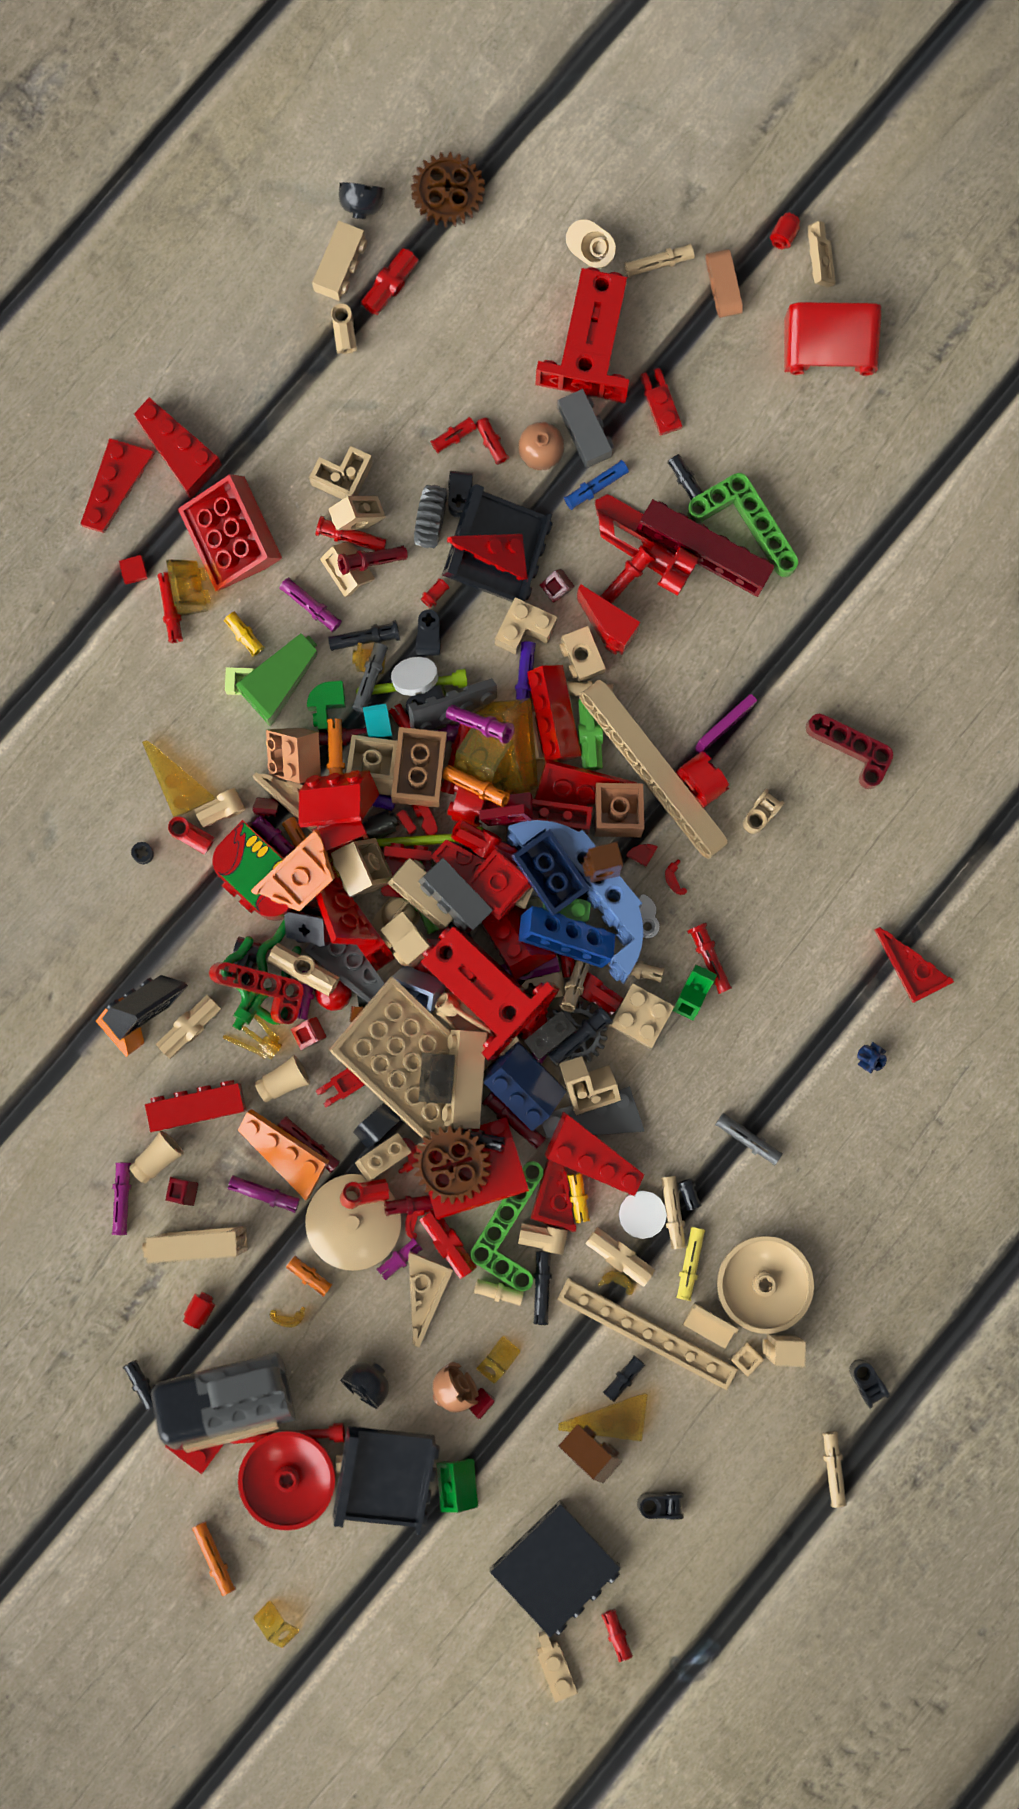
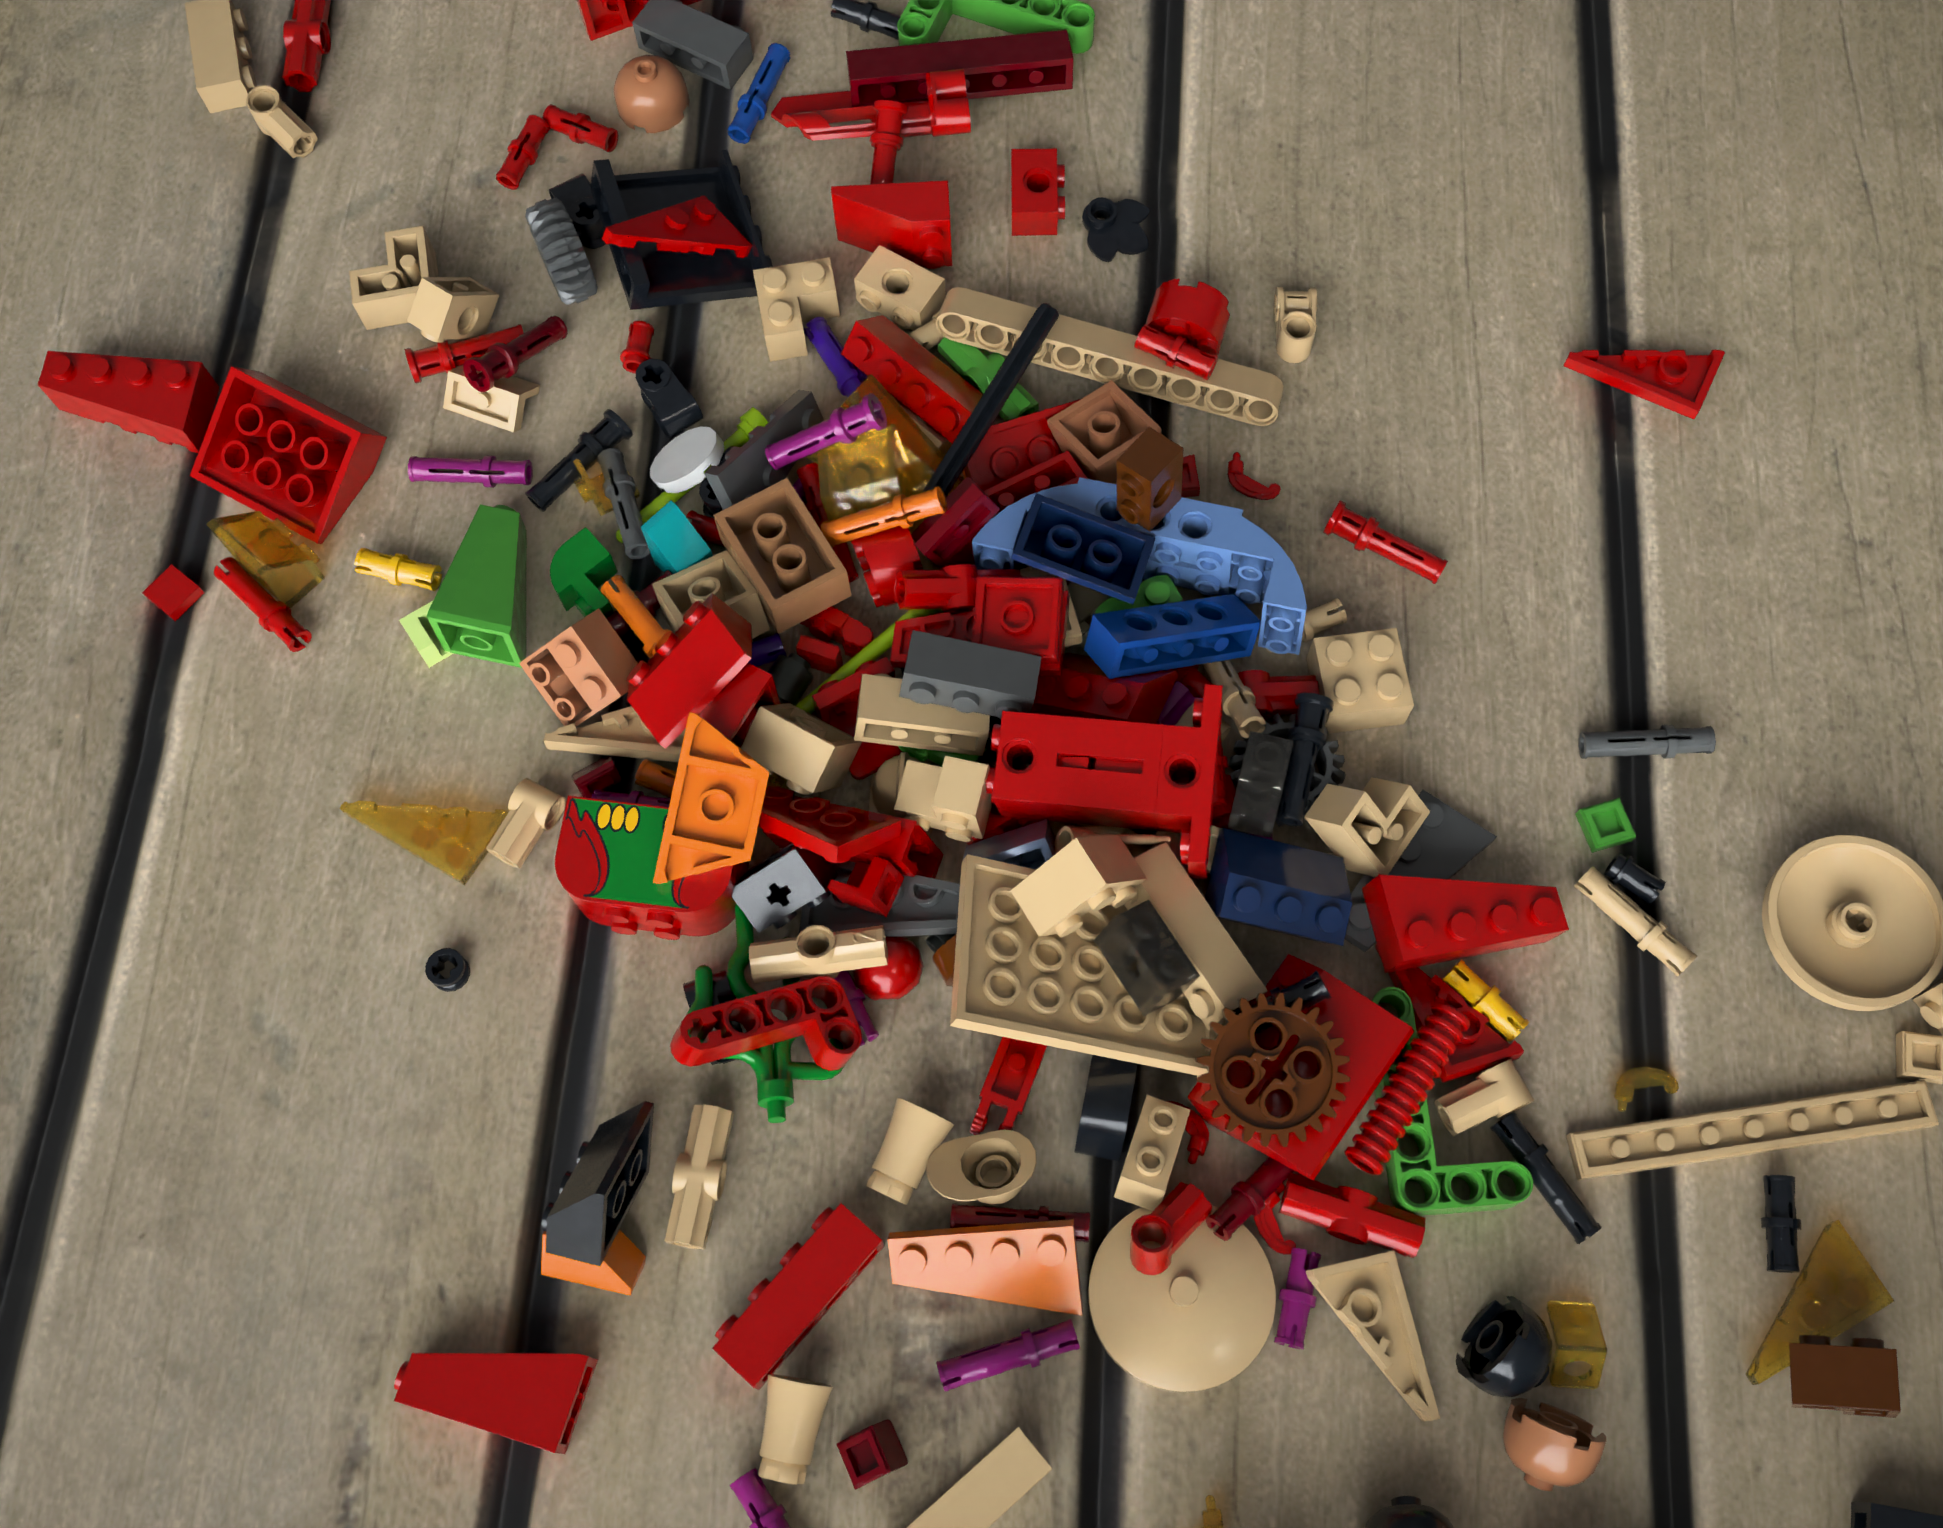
camera: 30 degrees left, 15 degrees down
(49, 1059) = (507, 1394): none -> red slope
(115, 478) = (69, 501): red wing -> none
(192, 836) = (508, 889): red piece -> none
(268, 1046) = (846, 1113): clear yellow plant -> none
(307, 1110) = (982, 1167): none -> tan piece
(308, 1033) = (894, 1055): red slope -> none
(309, 1276) = (1179, 1436): orange pin -> none
(346, 956) = (870, 886): none -> red panel
(433, 1028) = (1077, 879): none -> tan brick
(466, 1342) = (1506, 1349): none -> black cylinder
(484, 1403) = (1617, 1428): dark red slope -> none
(498, 1292) = (1487, 1233): tan pin -> none
(502, 1111) = (1272, 951): dark red pin -> none
(507, 1211) = (1407, 1088): none -> red piece
(557, 585) = (798, 238): dark red slope -> none
(571, 760) = (993, 399): none -> black axle
(620, 1256) = (1617, 1041): tan piece -> none
(642, 1215) = (1594, 958): white tile -> none
(681, 794) = (1176, 352): none -> red pin
(686, 1292) = (1723, 976): light yellow pin -> none
(694, 992) = (1402, 595): green brick -> none
(696, 634) = (1035, 192): none -> red brick
(699, 1161) = (1605, 825): none -> bright green tile
(710, 1326) = (1829, 1044): tan panel -> none
(716, 698) = (1118, 231): none -> black plate
(726, 723) = (1159, 238): magenta tile -> none
(847, 747) = (1343, 166): dark red beam -> none
(872, 1057) = (1710, 516): dark blue gear -> none

